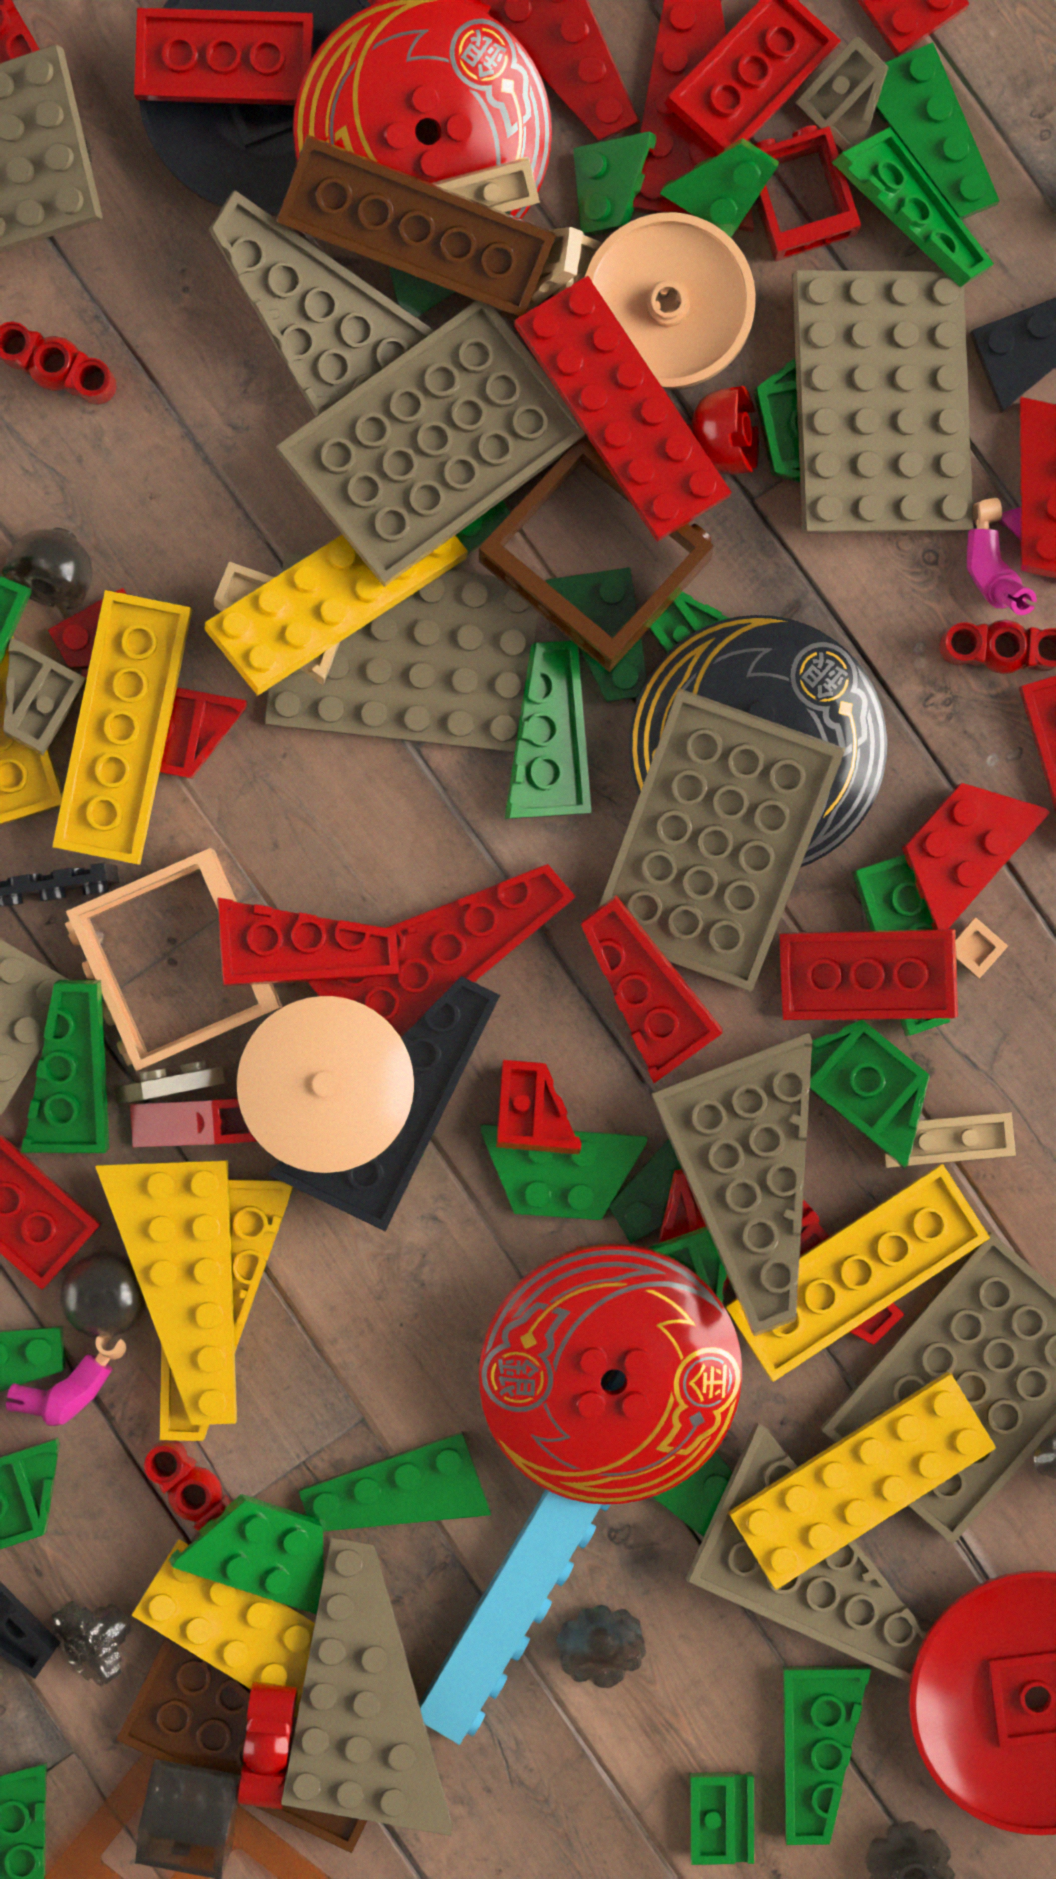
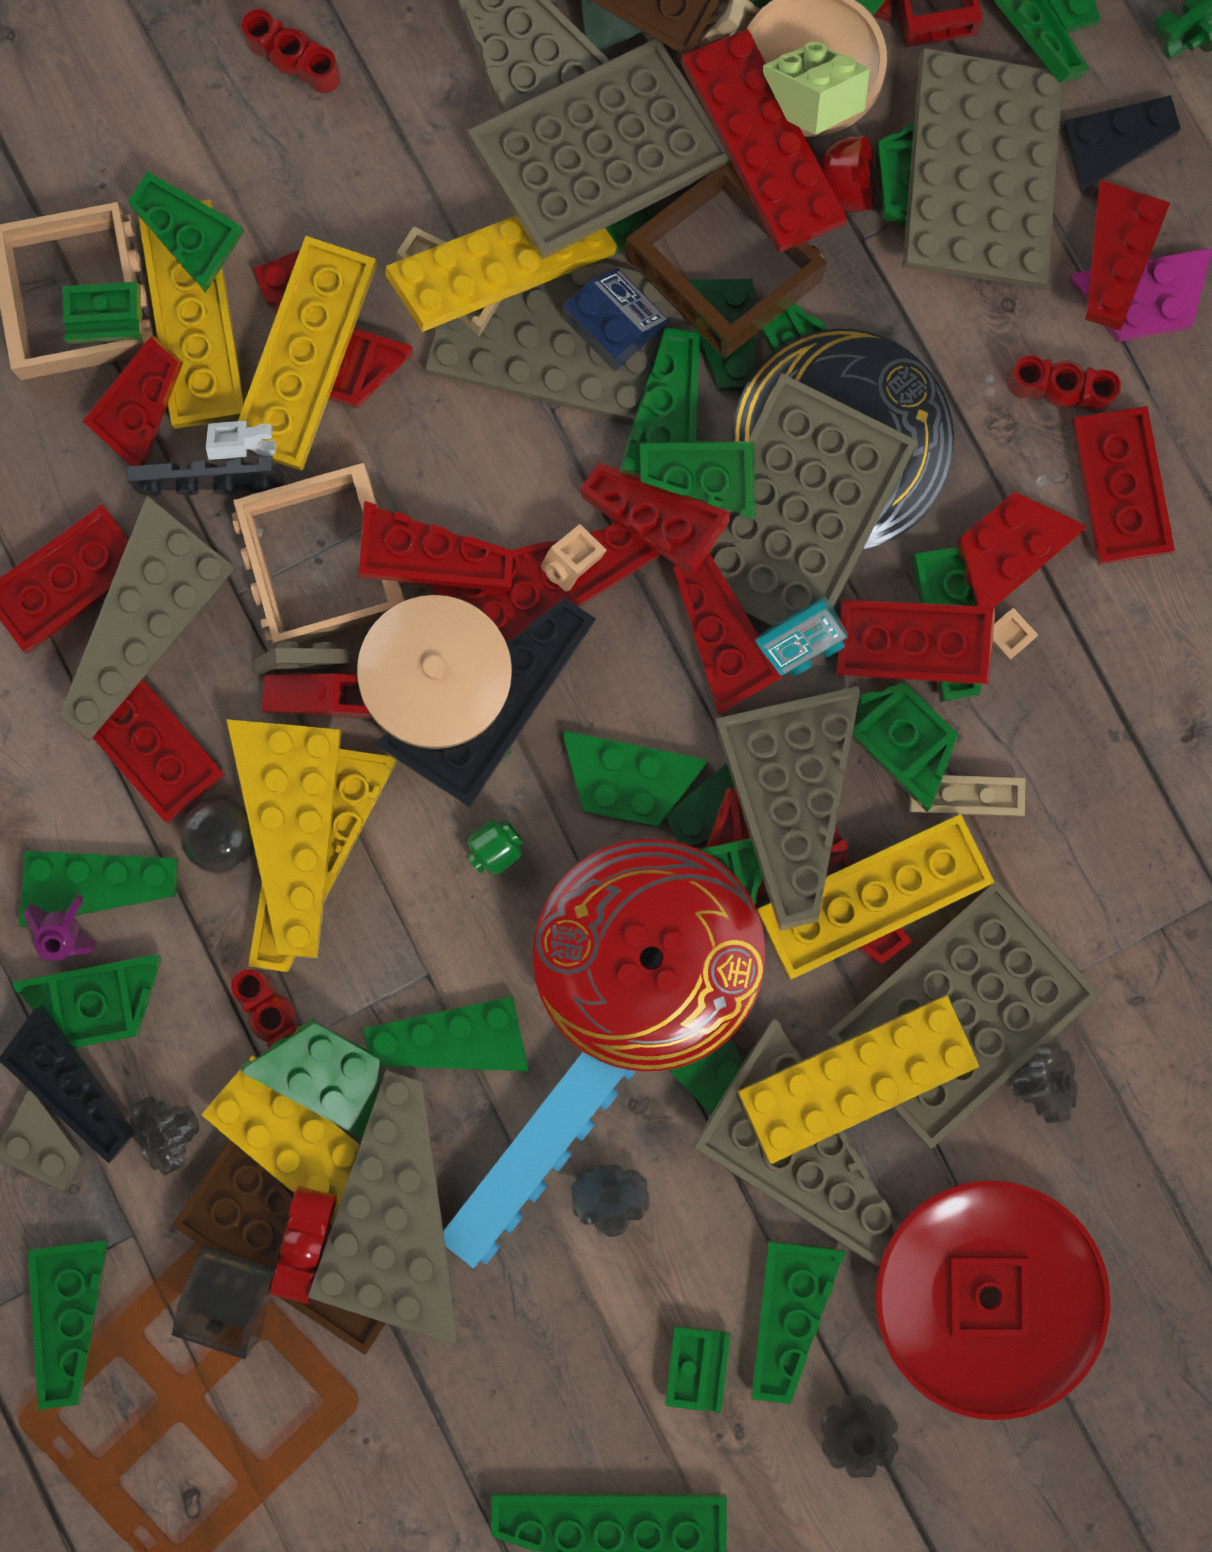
camera: 10 degrees right, 5 degrees down
(37, 696) = (236, 318): dark tan wing -> none
(51, 566) = (264, 213): clear smoke cylinder -> none
(57, 844) = (233, 439): none -> white plate
(70, 1086) = (216, 652): green wing -> none
(71, 1395) = (176, 917): dark pink arm -> none
(419, 1269) = (494, 847): none -> green head
(464, 928) = (572, 557): none -> light nougat bracket
(476, 638) = (613, 317): none -> dark blue slope
(531, 1111) = (610, 724): red wing -> none
(558, 868) = (666, 521): none -> red wing
(605, 811) = (705, 470): none -> green wing
(677, 340) = (817, 86): none -> yellowish green slope
(739, 987) = (802, 637): none -> teal slope
(989, 572) = (1054, 314): dark pink arm -> none

